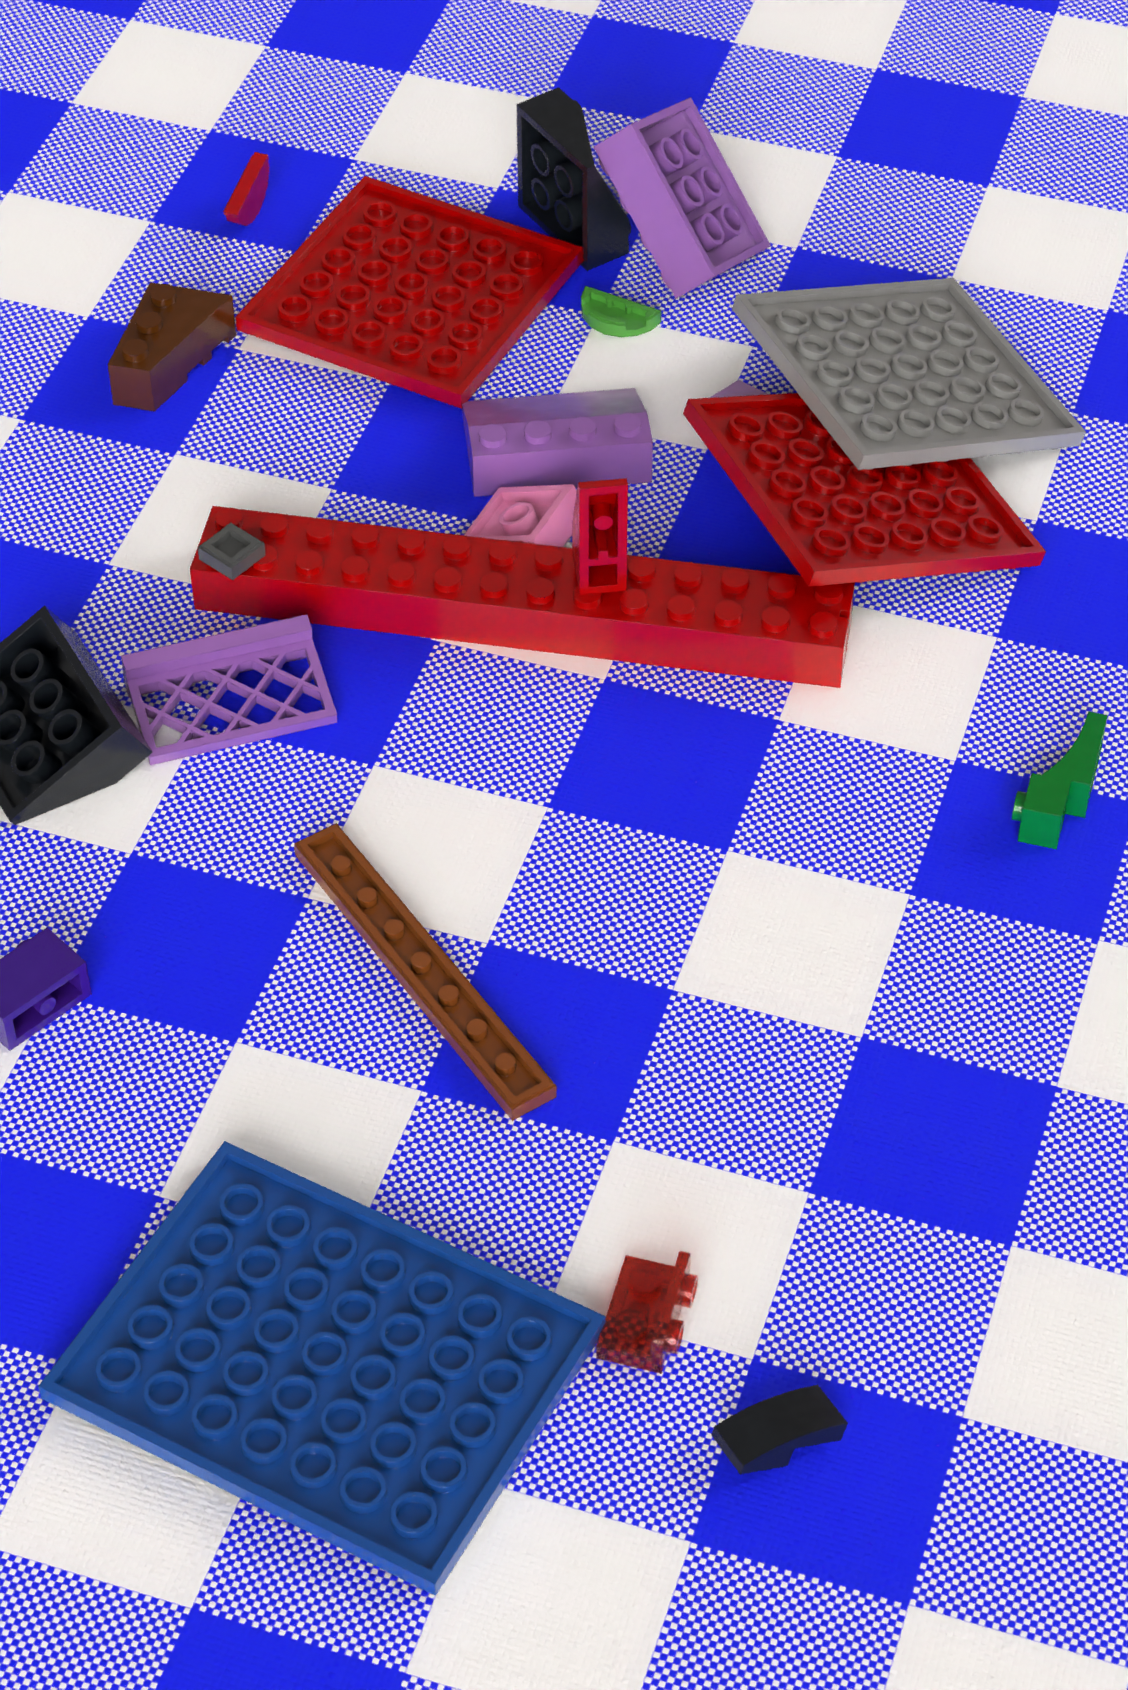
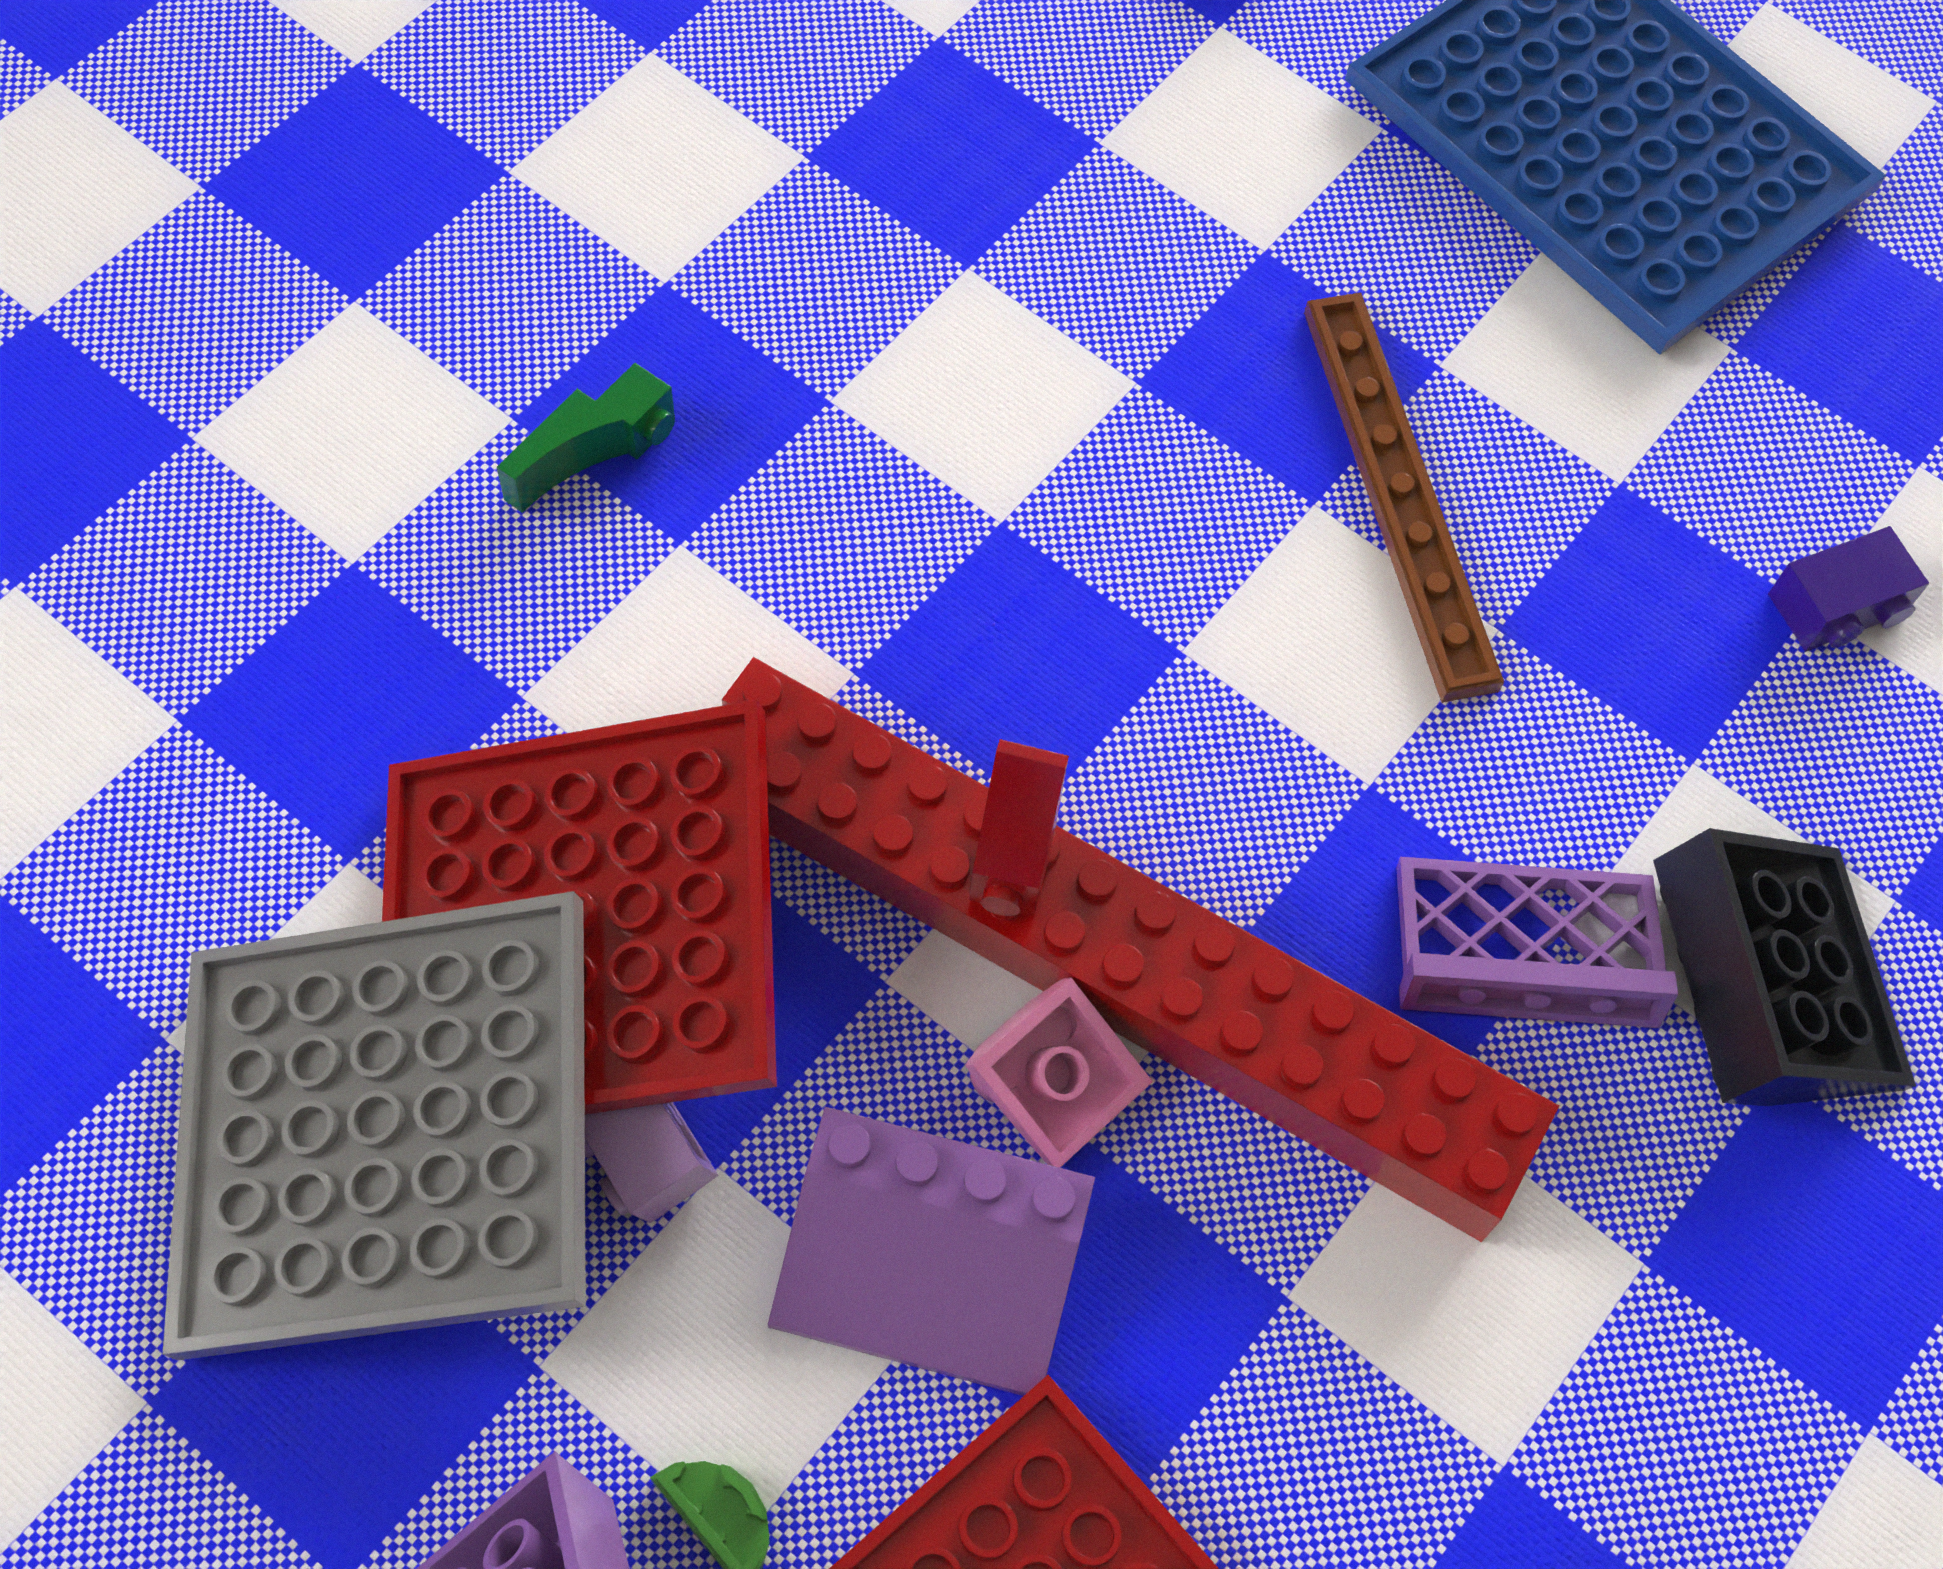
camera: 165 degrees left, 15 degrees up
(231, 551) = (1503, 1083): dark grey tile -> none
(646, 1311) = (1299, 73): clear red bracket -> none

